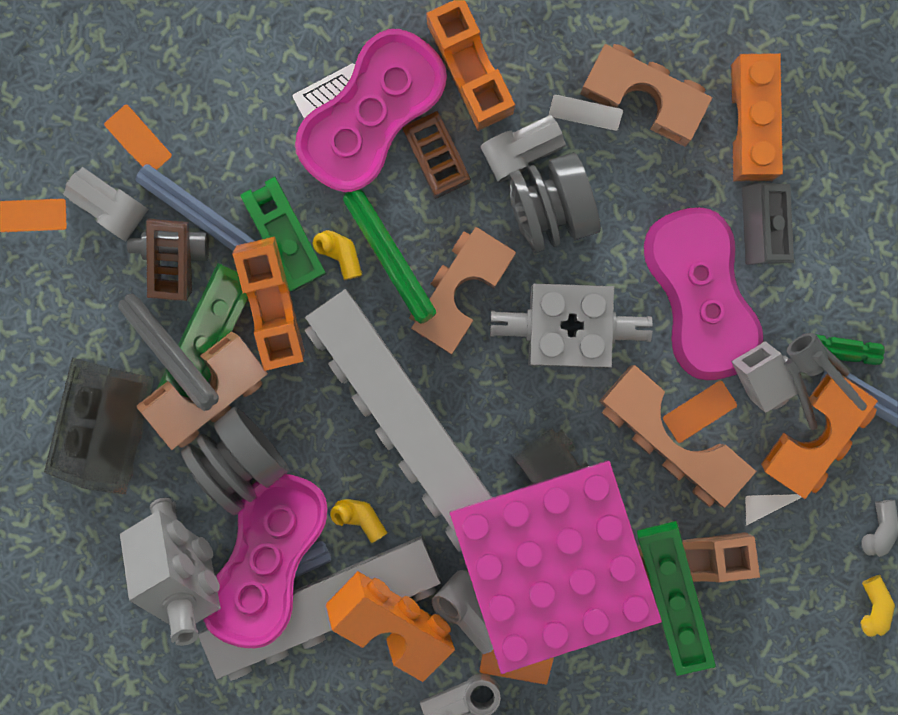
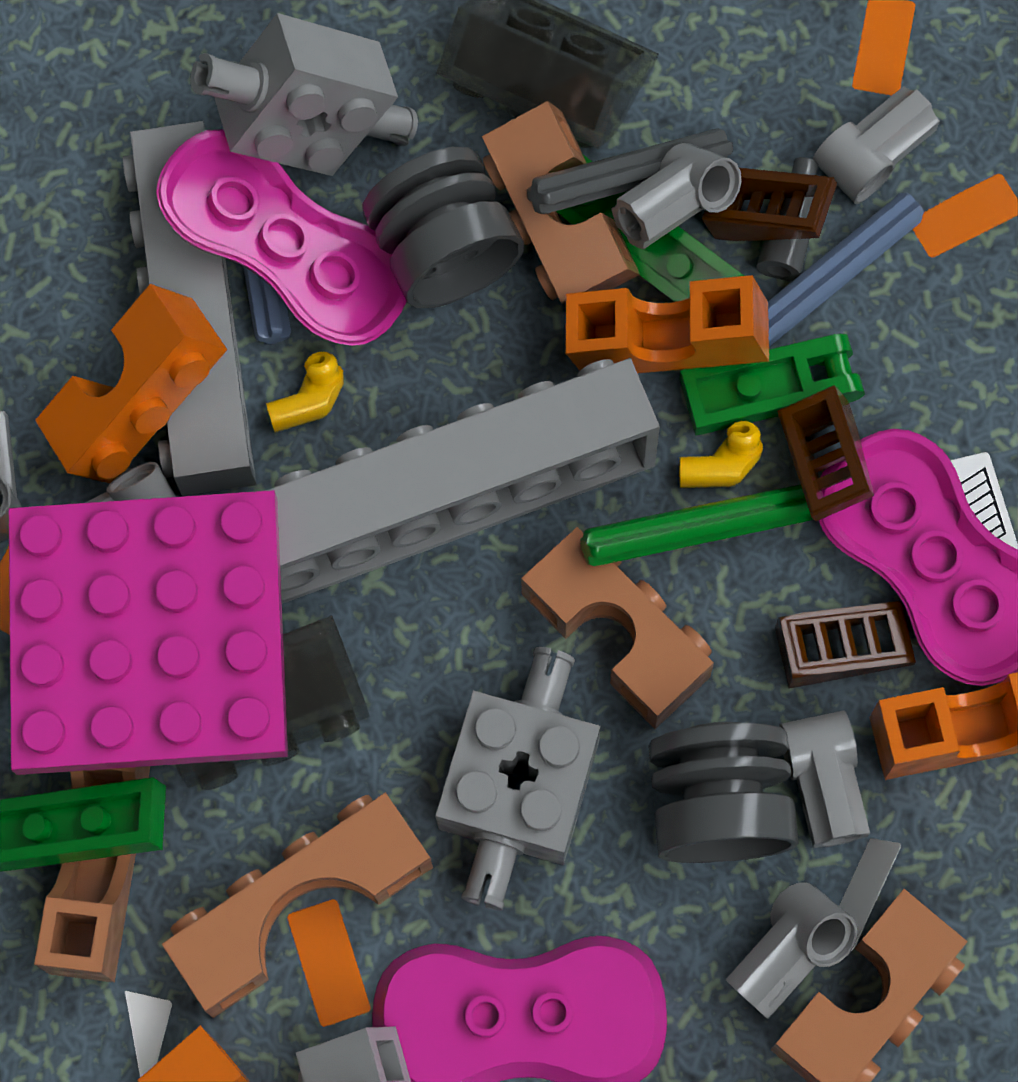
camera: 105 degrees right, 15 degrees down
(169, 313) = (685, 184): none -> light grey piece
(307, 212) = (809, 417): none -> reddish brown slope
(622, 139) = (804, 934): none -> light grey piece

